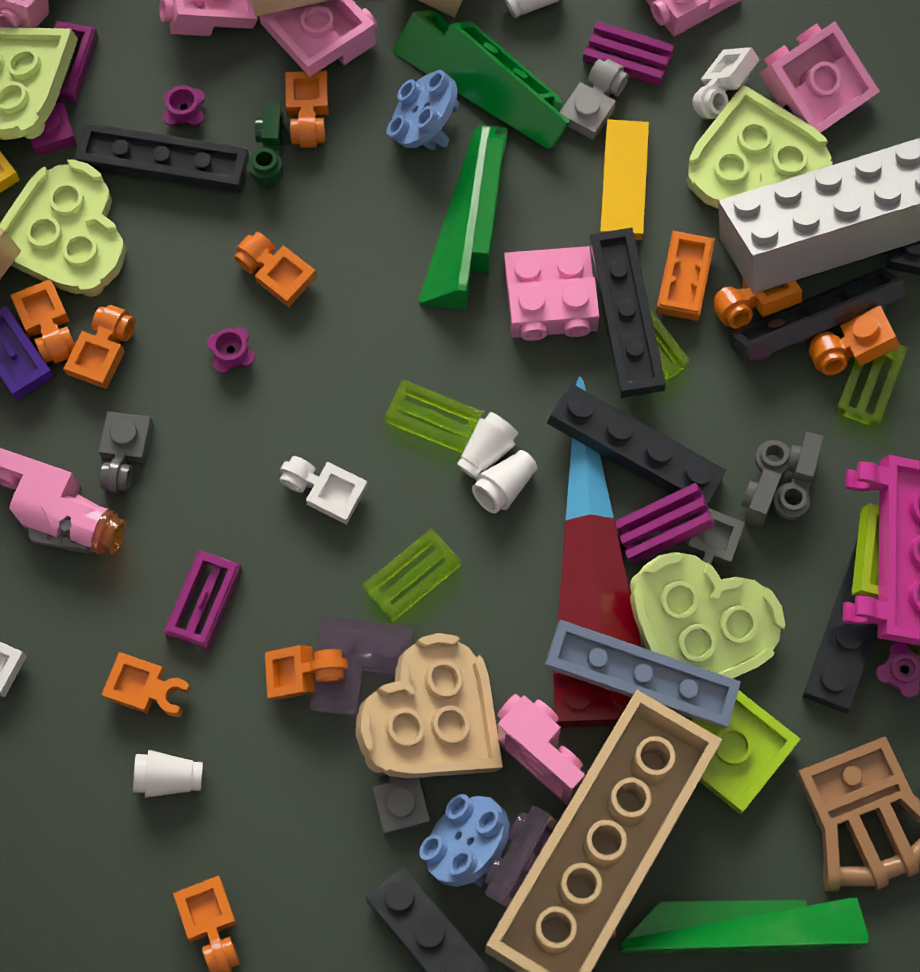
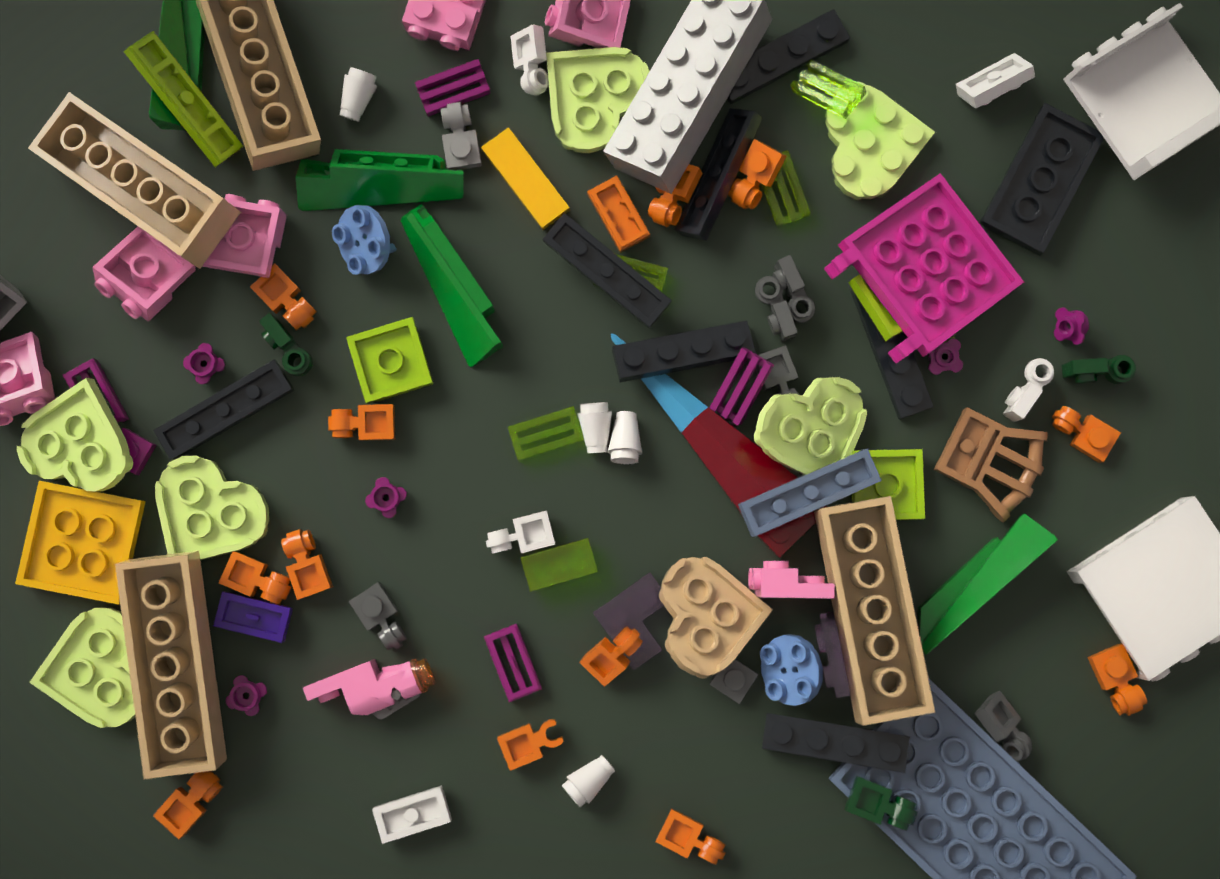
camera: 45 degrees left, 15 degrees up
(332, 544) = (559, 564): none -> clear neon green plate
(349, 233) = (389, 360): none -> lime plate
(383, 599) = (620, 539): clear neon green tile -> none
(551, 293) = (547, 293): bright pink plate -> none

